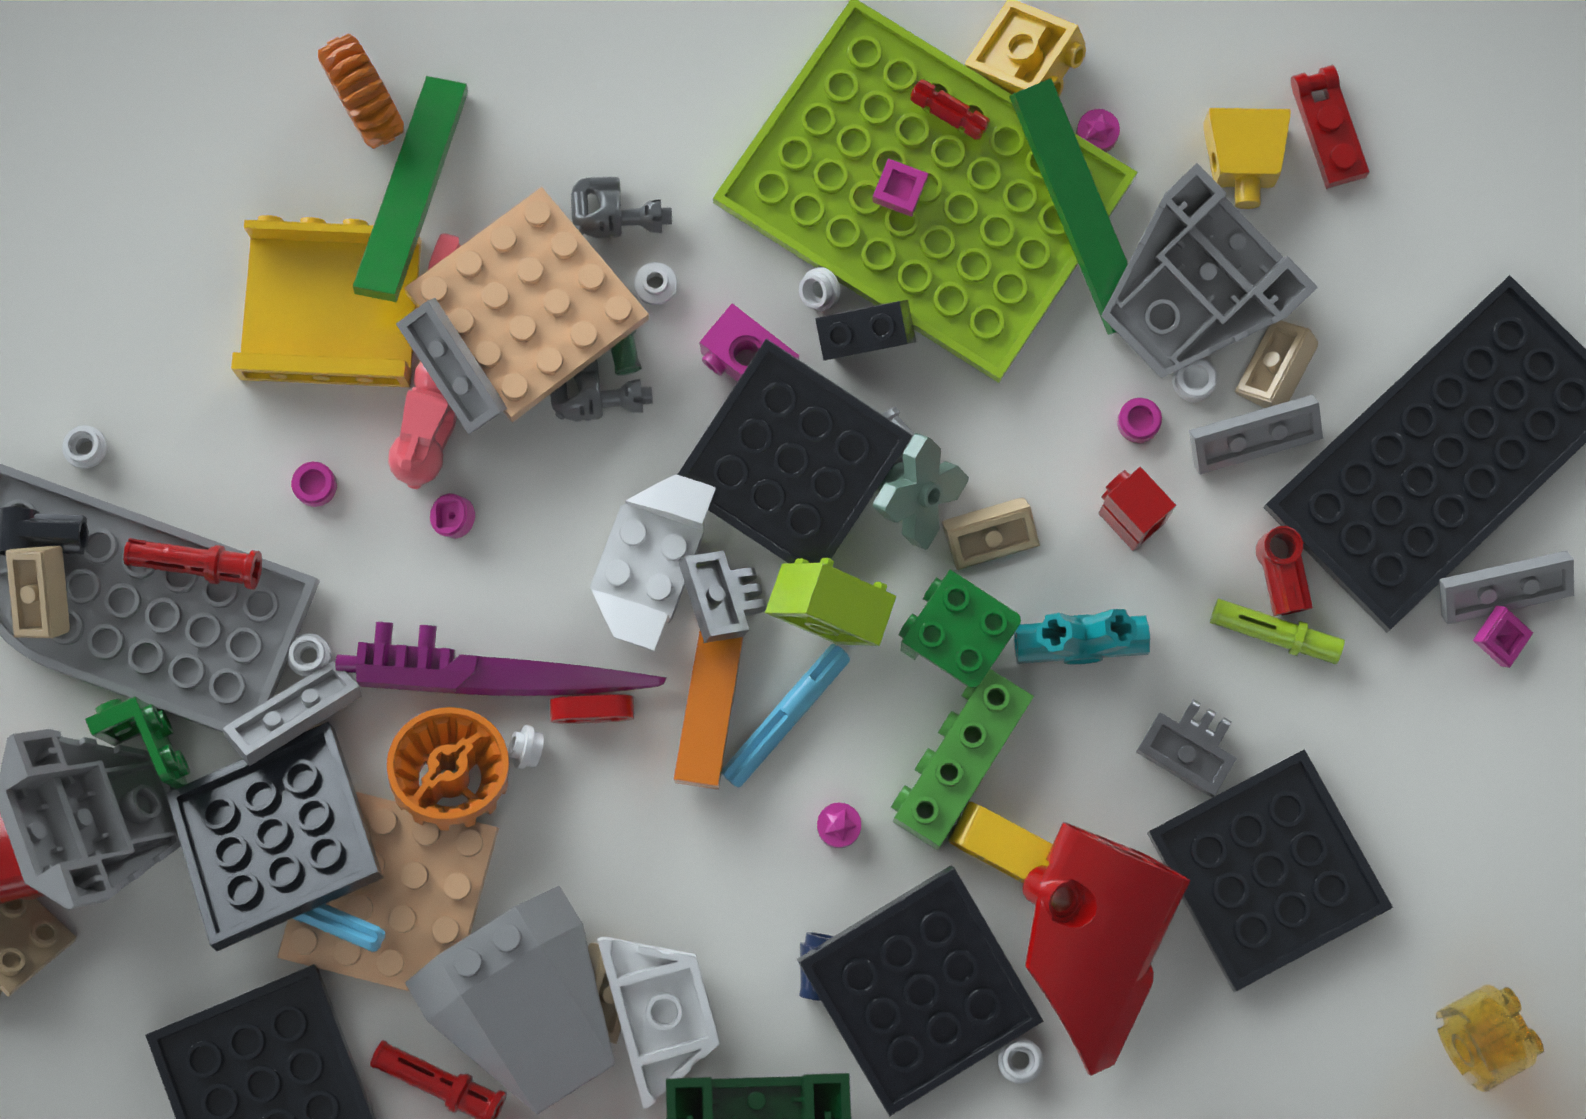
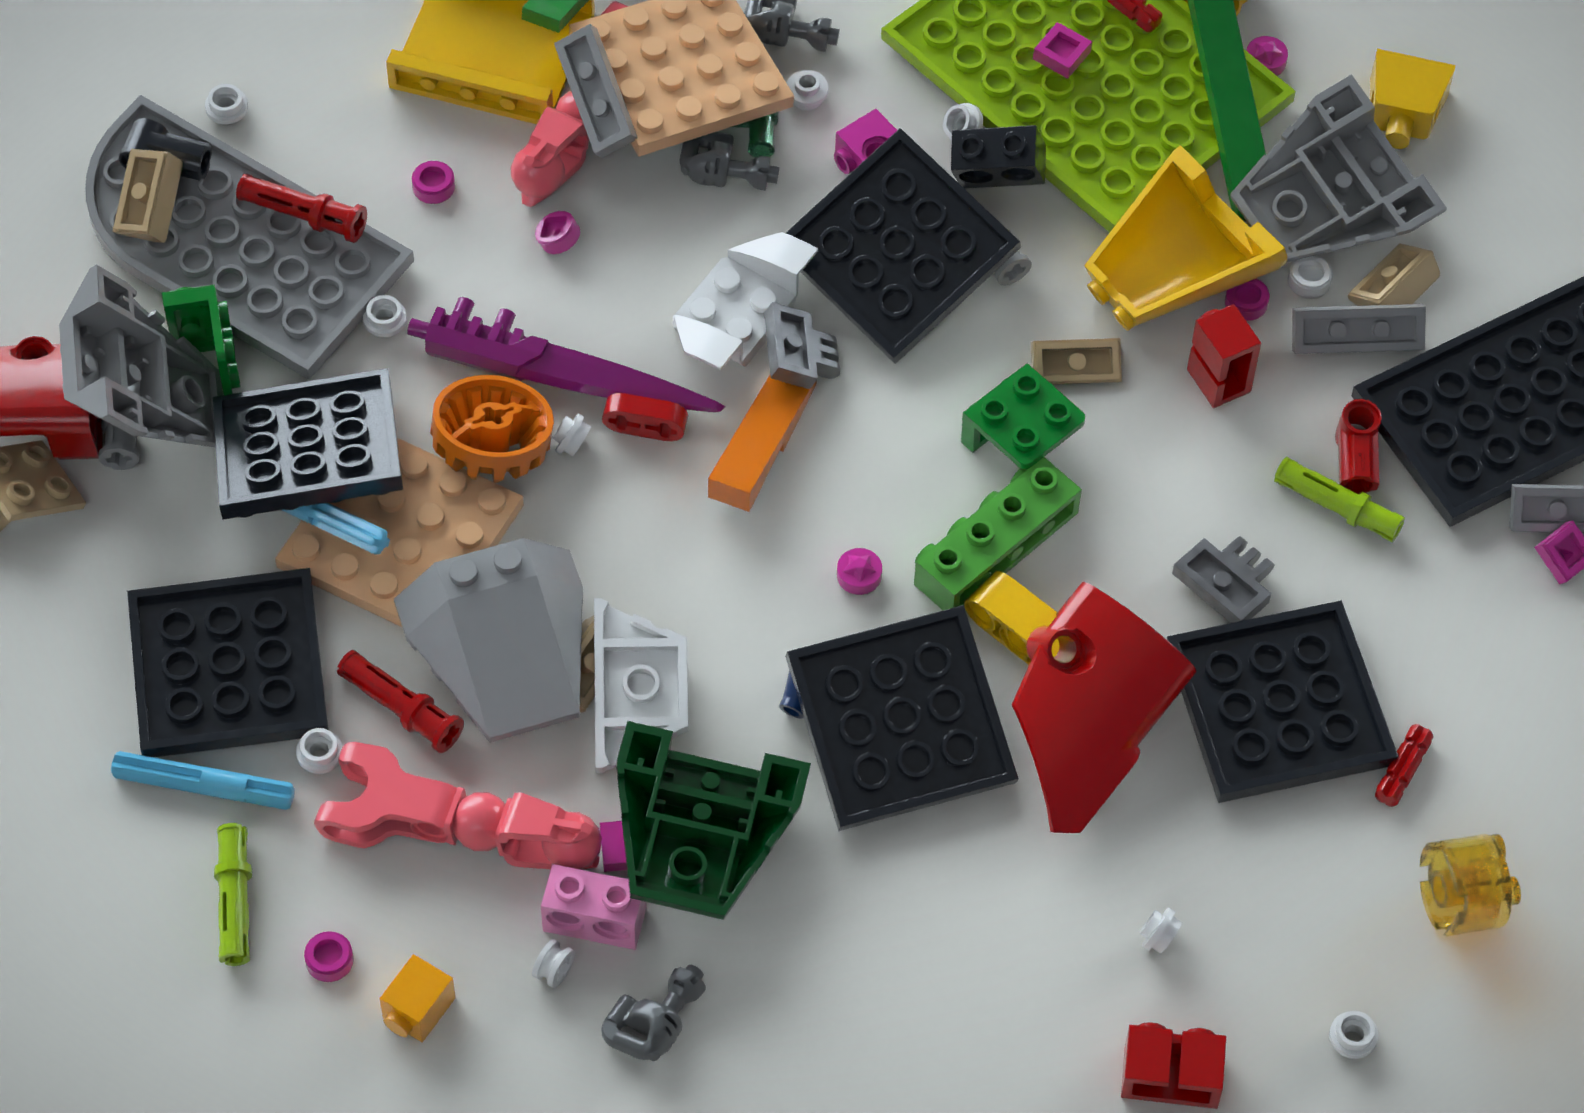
camera: 10 degrees right, 20 degrees down
(291, 713) = (355, 351): light grey plate -> none
(785, 715) = (832, 466): medium azure axle -> none
(831, 603) = (902, 363): lime container -> none
(917, 488) = (1016, 298): sand green plant -> none
(1034, 1065) = (985, 801): white plate -> none
(1066, 394) = (1177, 247): none -> yellow cone
(1082, 638) = (1141, 459): teal piece -> none
(1329, 127) = (1493, 100): red plate -> none
(1401, 898) = (1403, 769): none -> red axle

